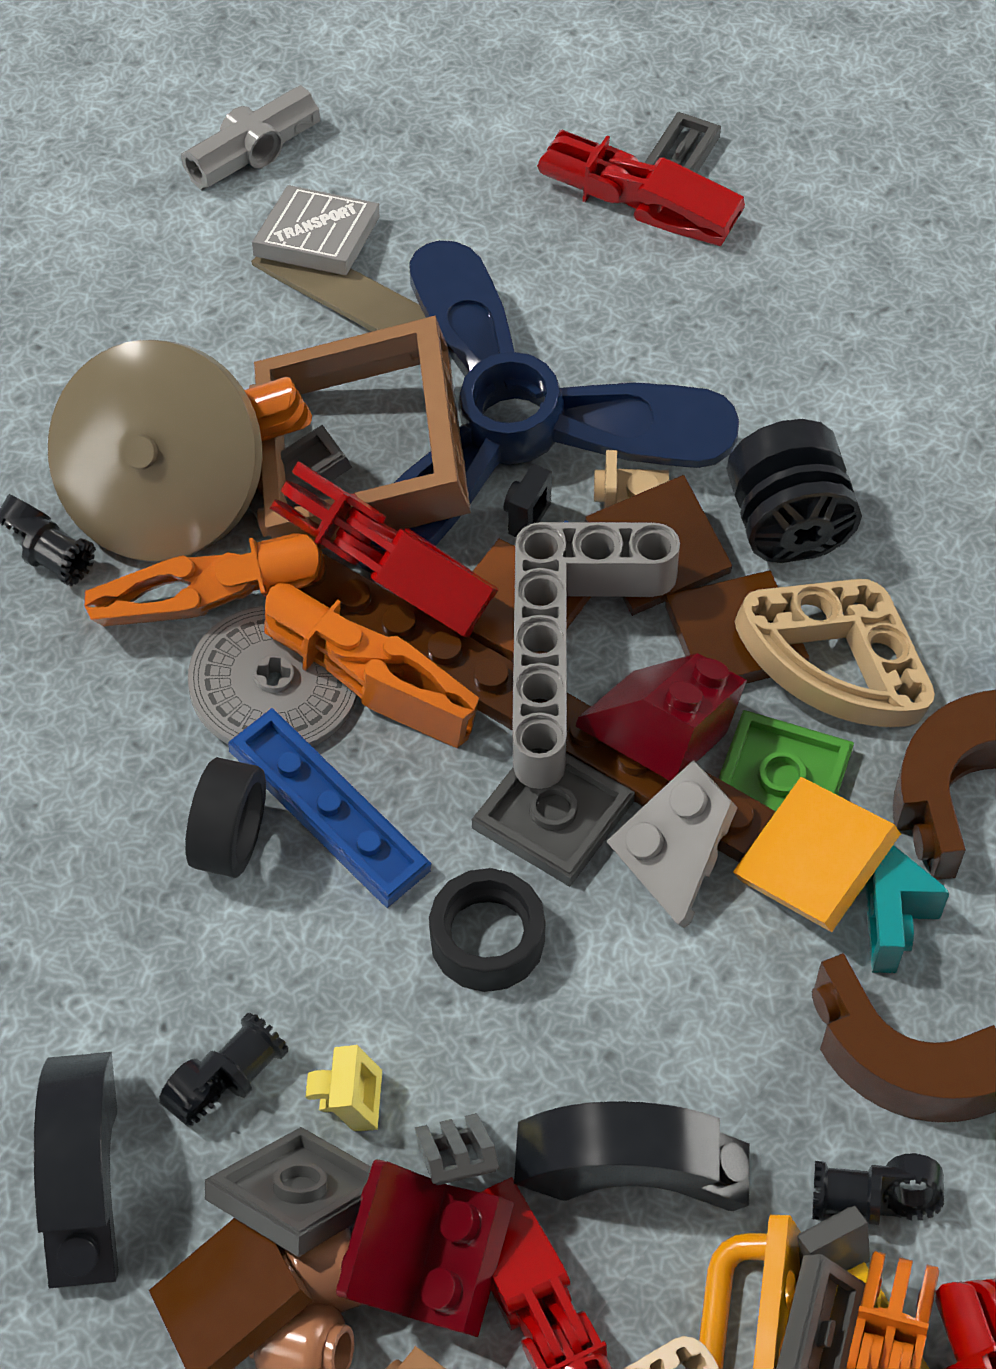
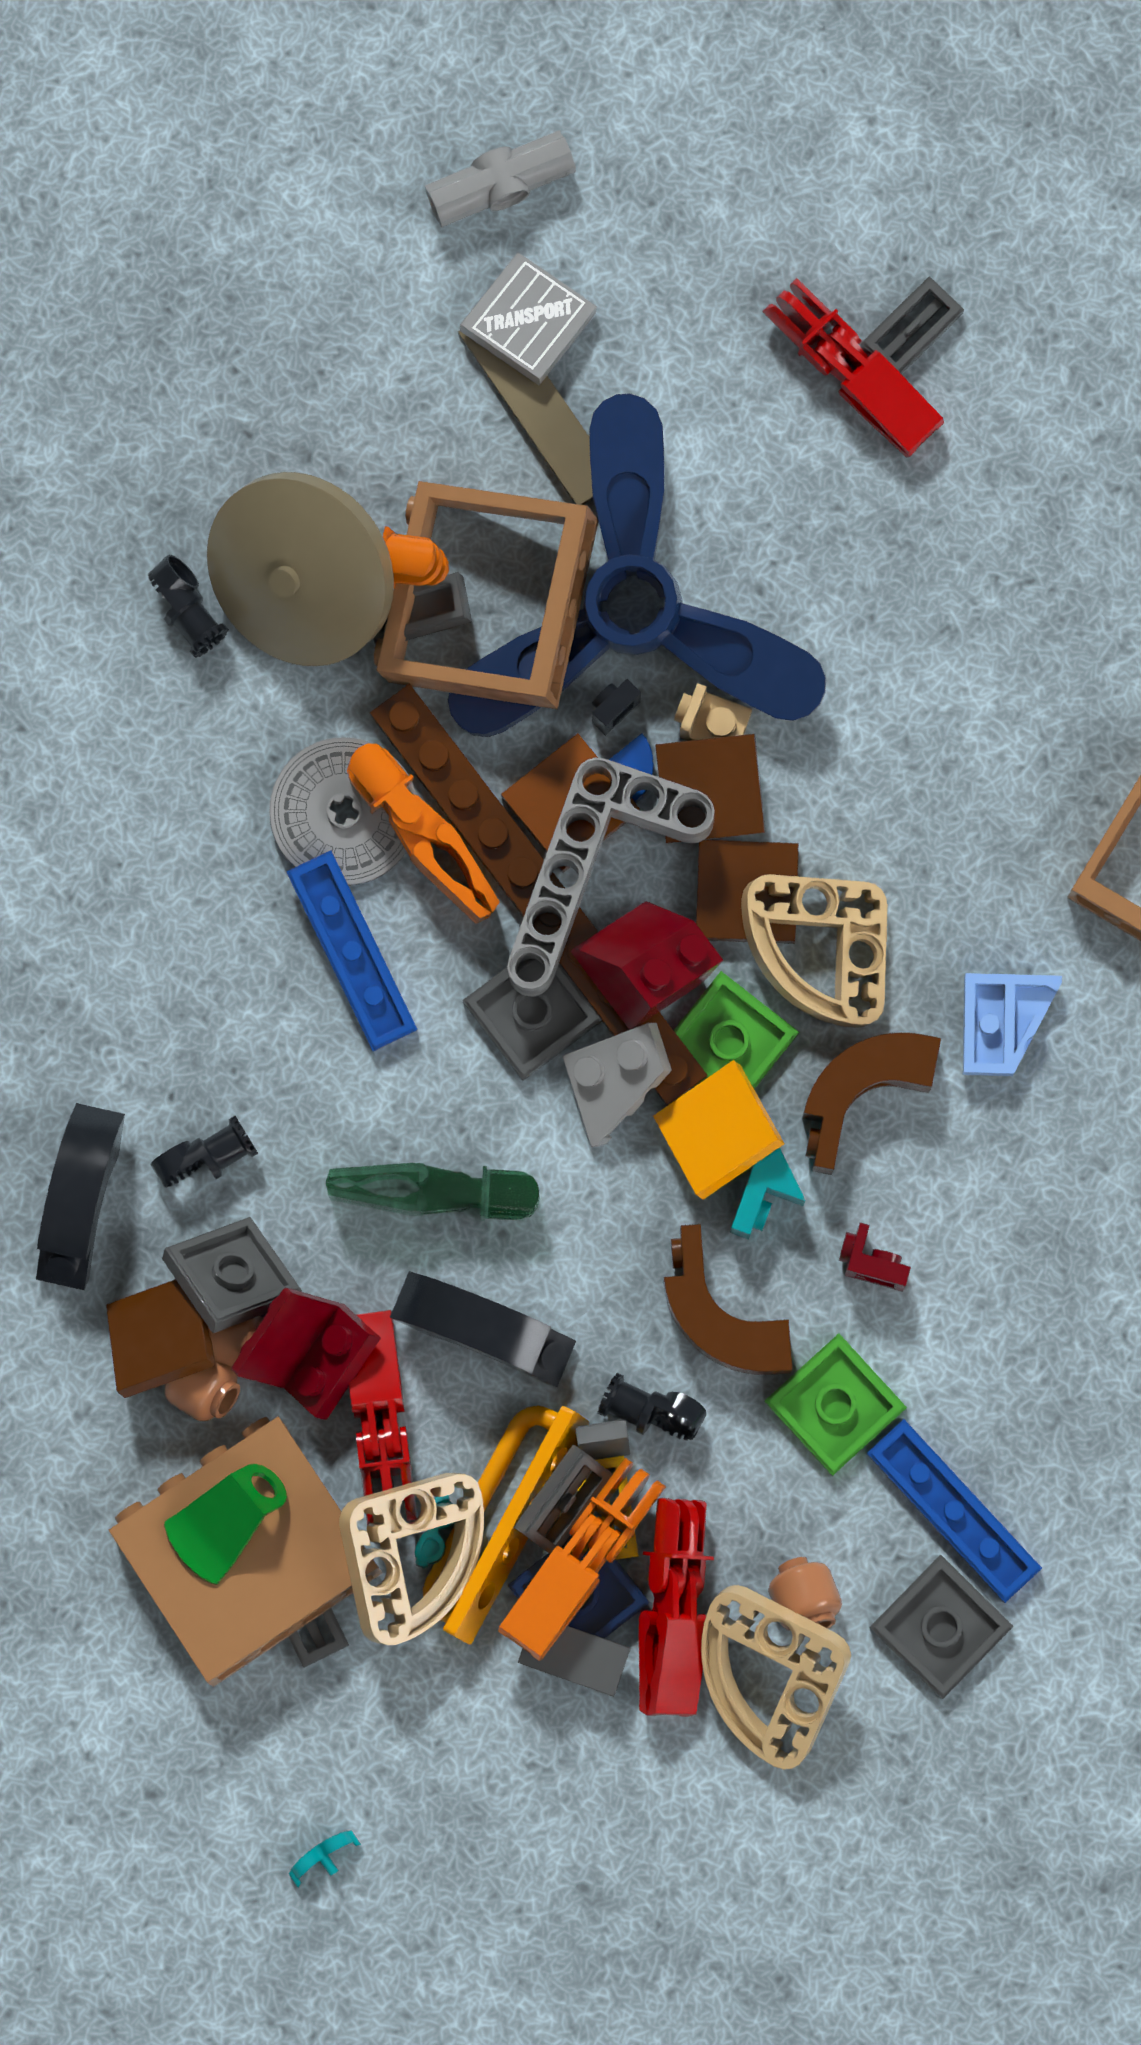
camera: 20 degrees right, 25 degrees up
(211, 581) = (316, 711): orange arm -> none
(225, 817) = (264, 945): black tyre -> none
(349, 1088) = (294, 1202): light yellow tile -> none
(407, 568) = (476, 749): red arm -> none
(455, 1141) = (355, 1262): dark grey tile -> none
(496, 971) = (431, 1066): black tyre -> none
(510, 1024) = (497, 1194): none -> clear green arm
(793, 491) = (840, 792): black wheel -> none

